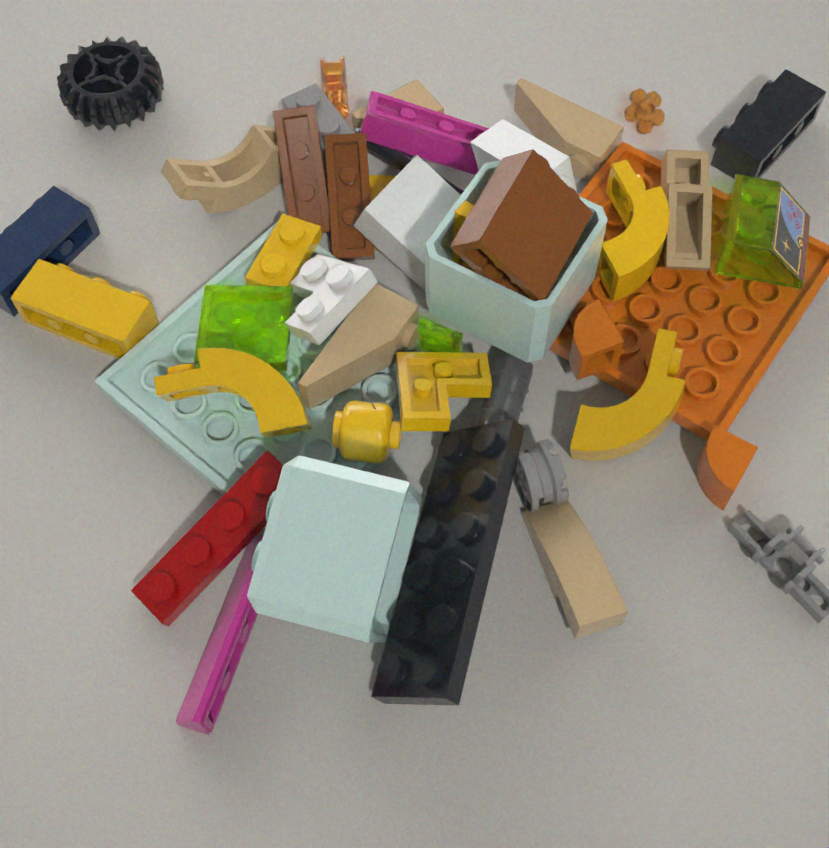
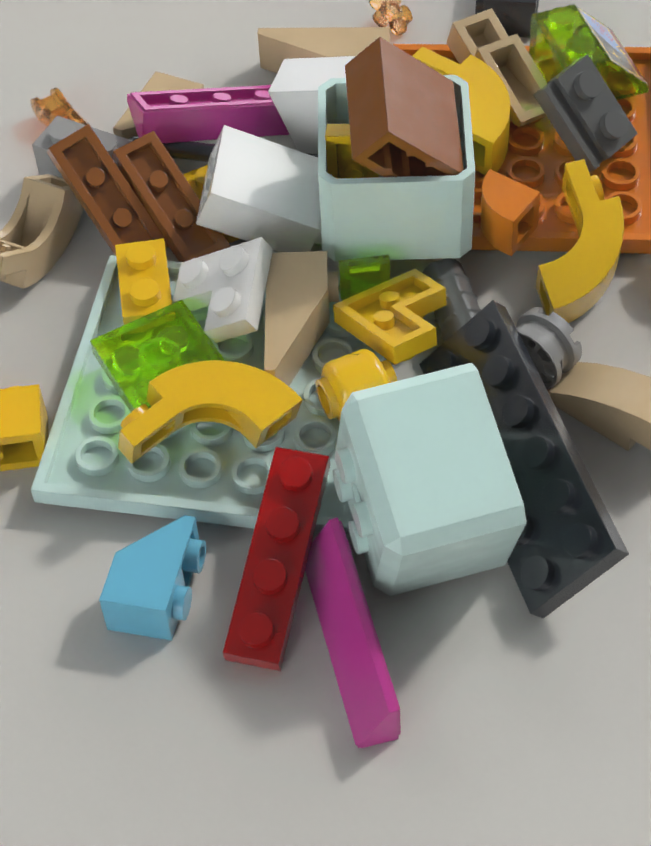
camera: 30 degrees left, 10 degrees down
(125, 501) = (151, 581): none -> medium azure slope
(719, 287) = (585, 113): none -> dark grey plate

